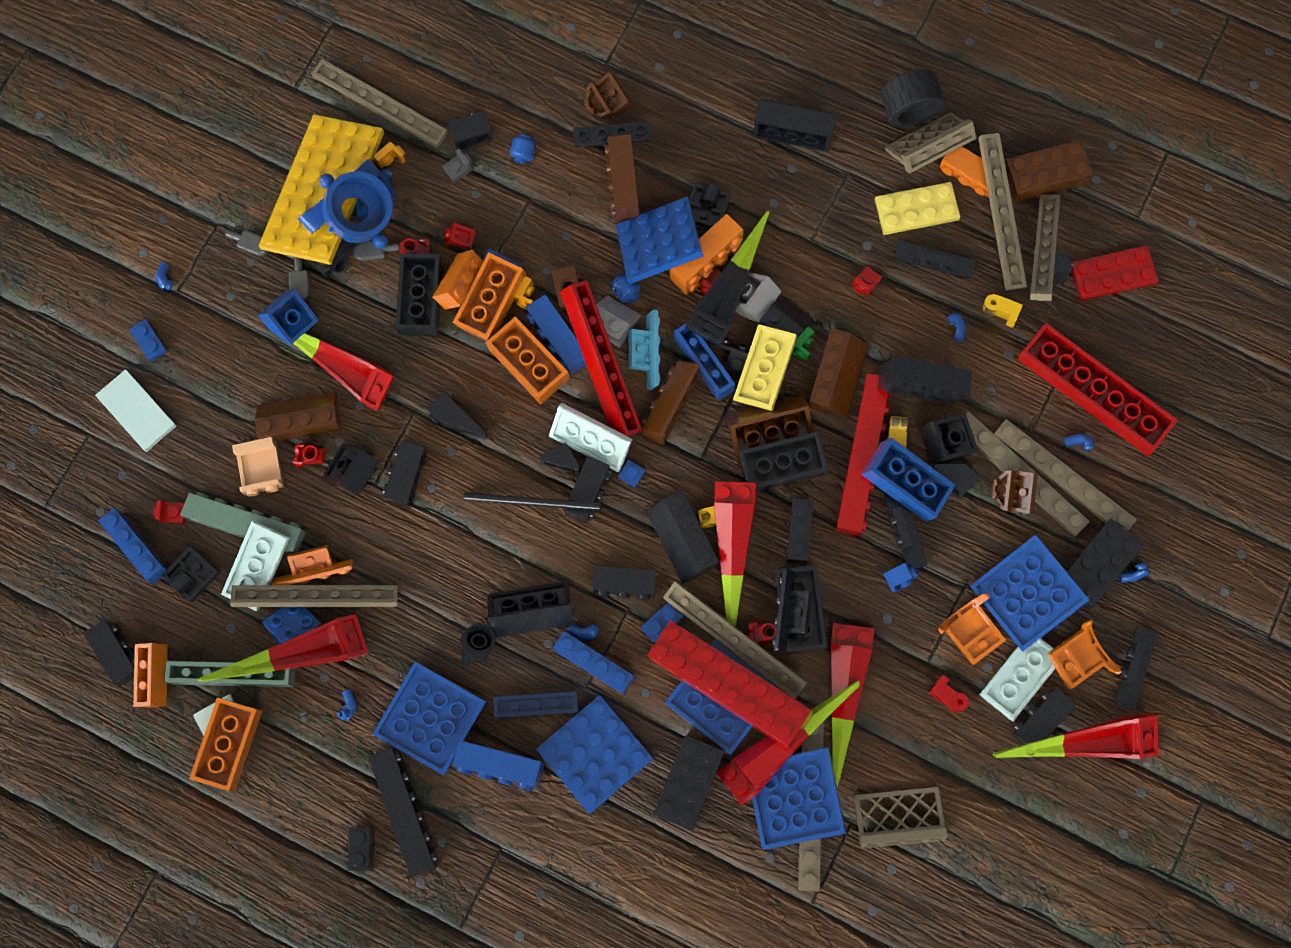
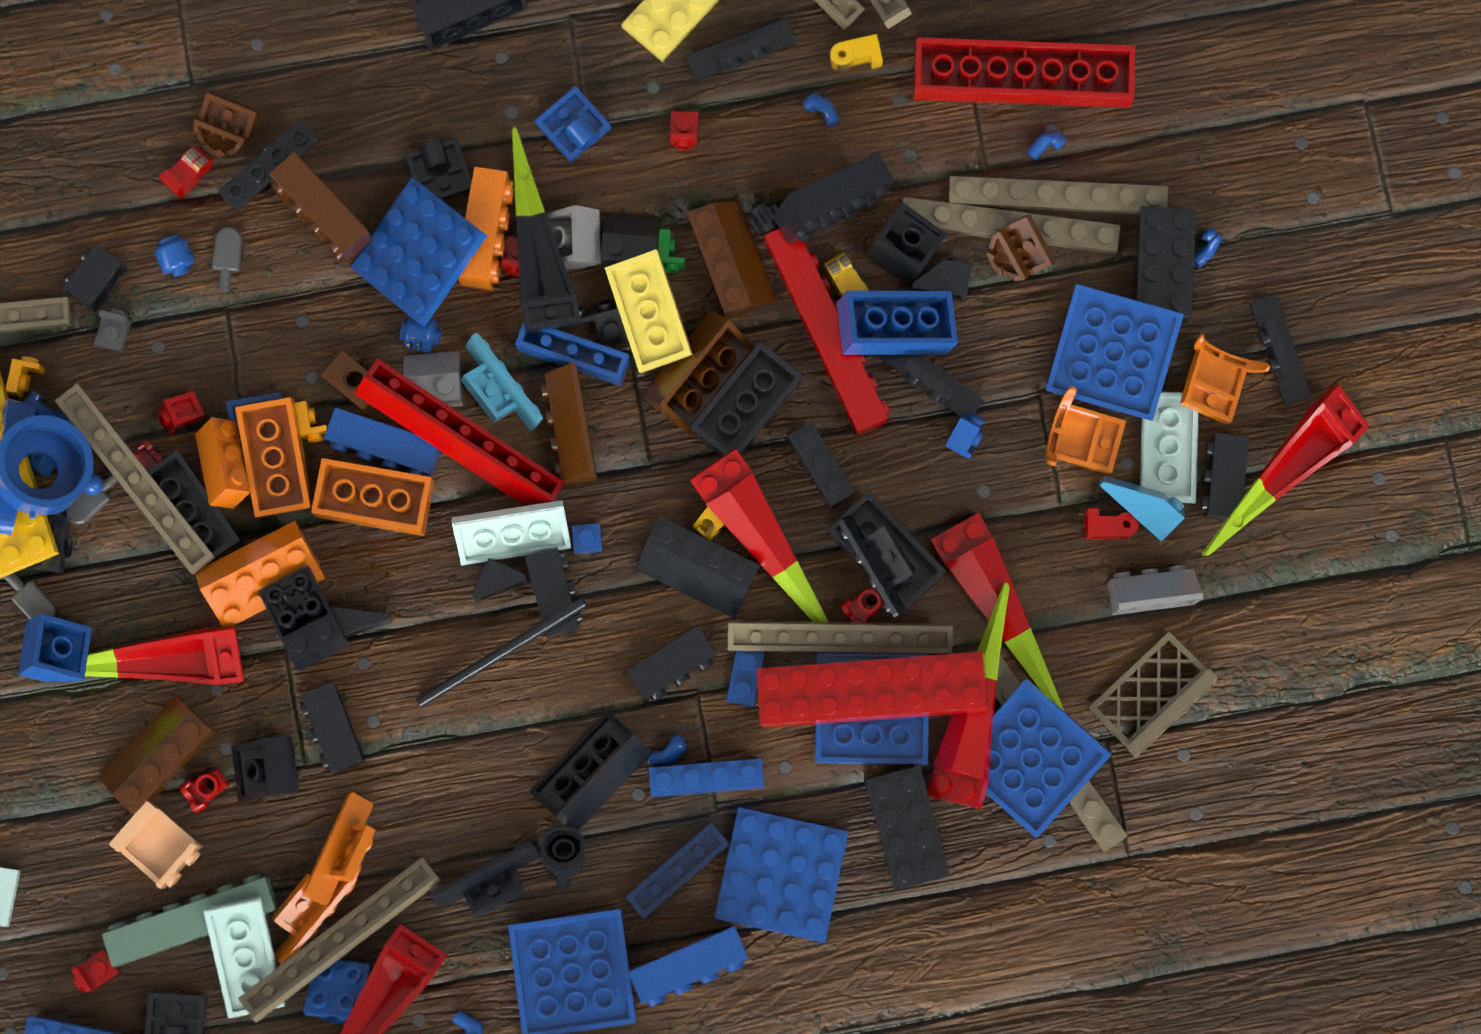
camera: 45 degrees left, 5 degrees up
(355, 546) = (343, 850): none -> orange bracket
(403, 252) = (135, 479): none -> dark tan plate
(422, 629) = (489, 884): none -> black bracket
(430, 357) = (234, 580): none -> orange brick
(434, 398) = (303, 618): none -> black slope
(552, 169) = (227, 255): none -> dark grey piece
(565, 108) = (186, 172): none -> red leg
(803, 233) = (572, 124): none -> blue plate
(873, 364) = (763, 219): none -> black gear
(947, 754) = (1154, 590): none -> light grey slope
(982, 703) = (1148, 506): none -> dark azure slope

